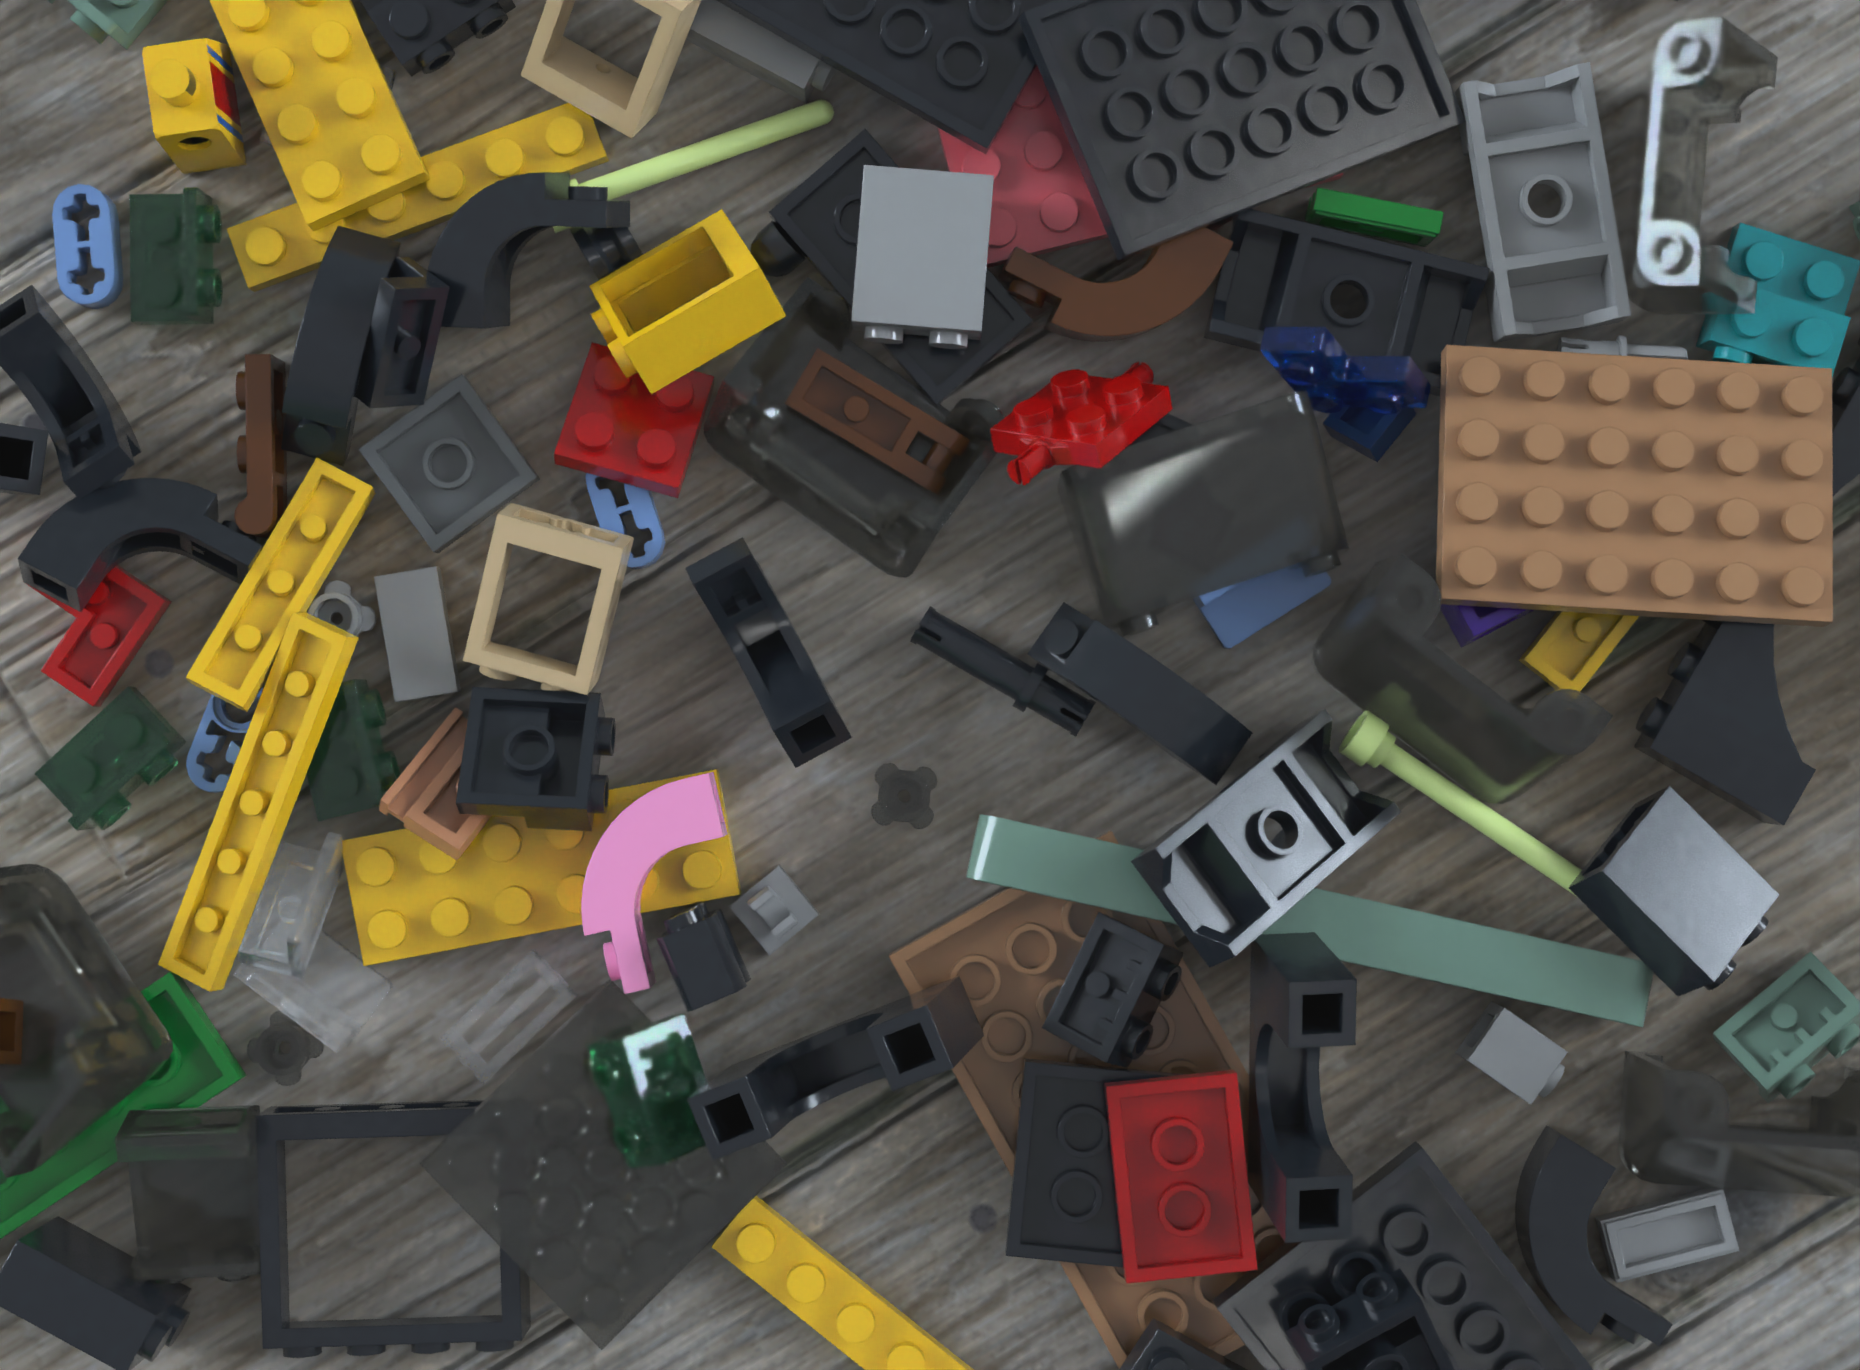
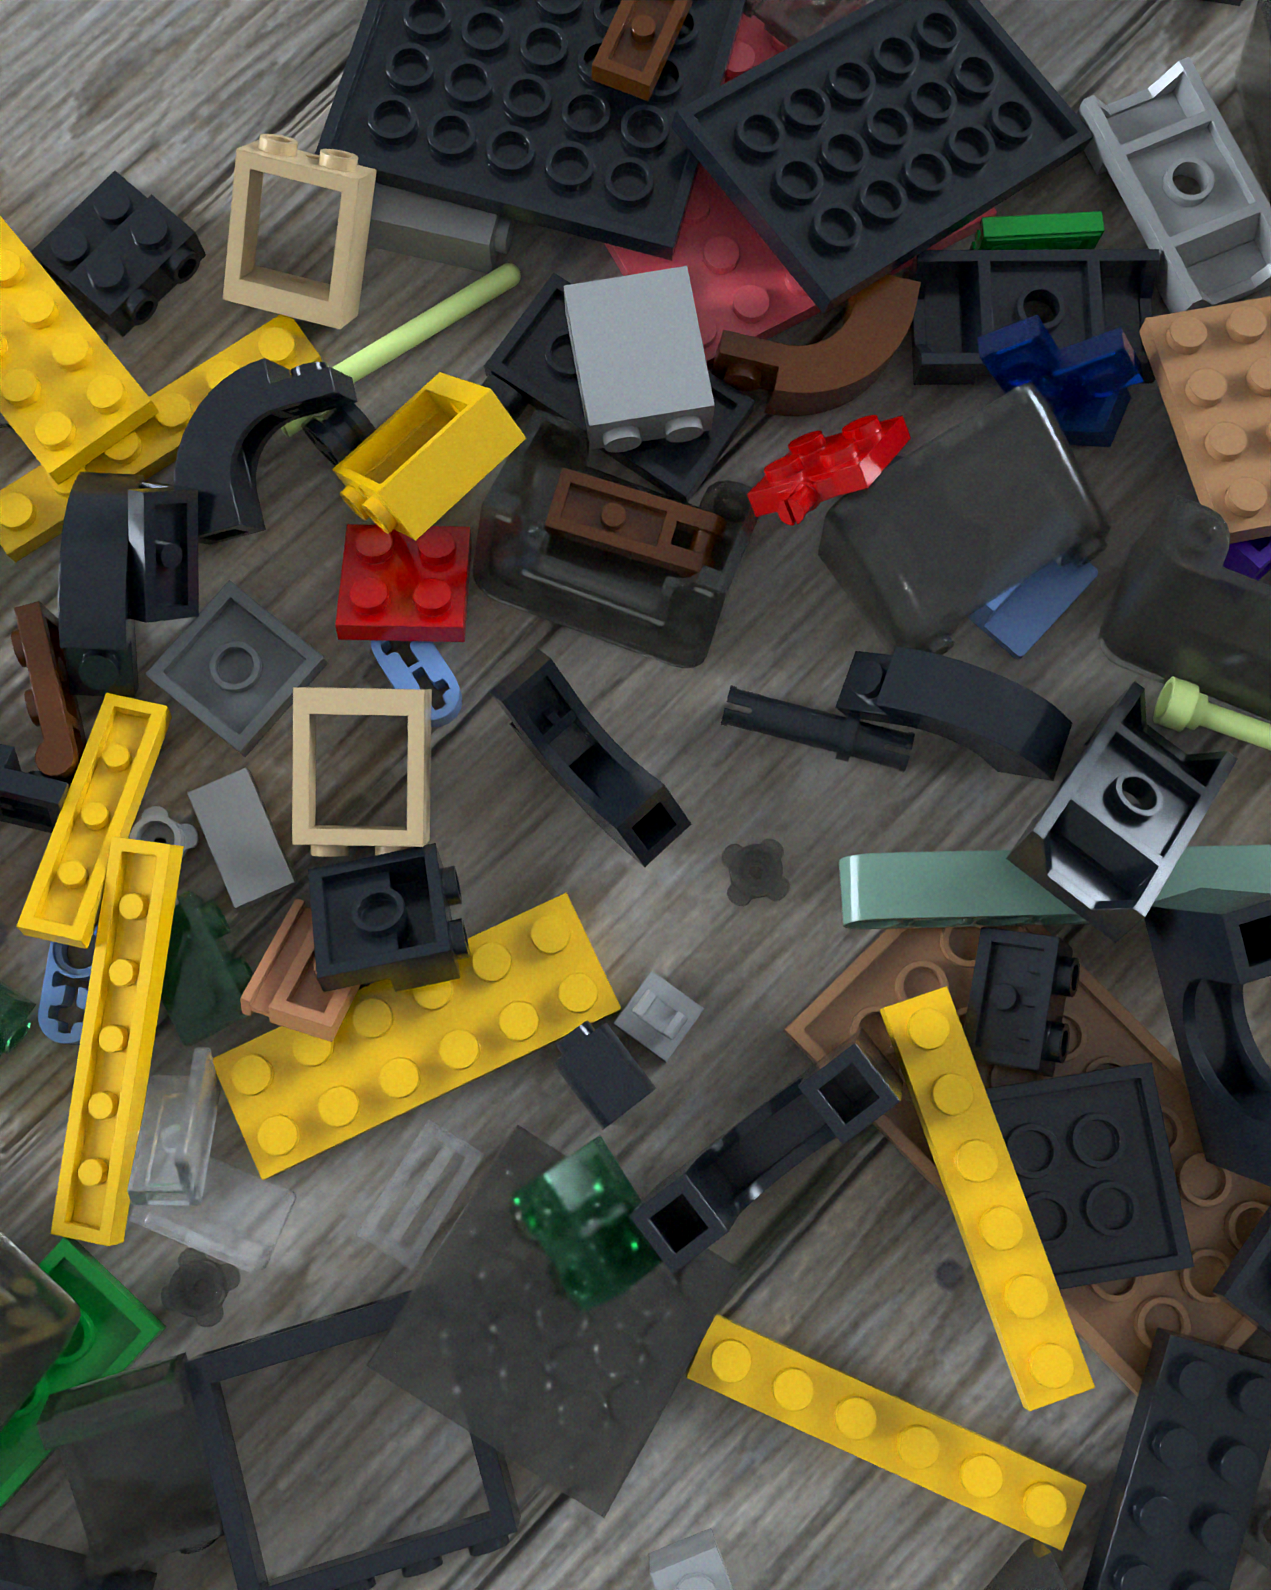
camera: 20 degrees left, 10 degrees down
(626, 853) = (510, 969): bright pink arch -> none
(1024, 1161) = (987, 1200): none -> yellow plate
(1180, 1176) = (1148, 1168): red plate -> none

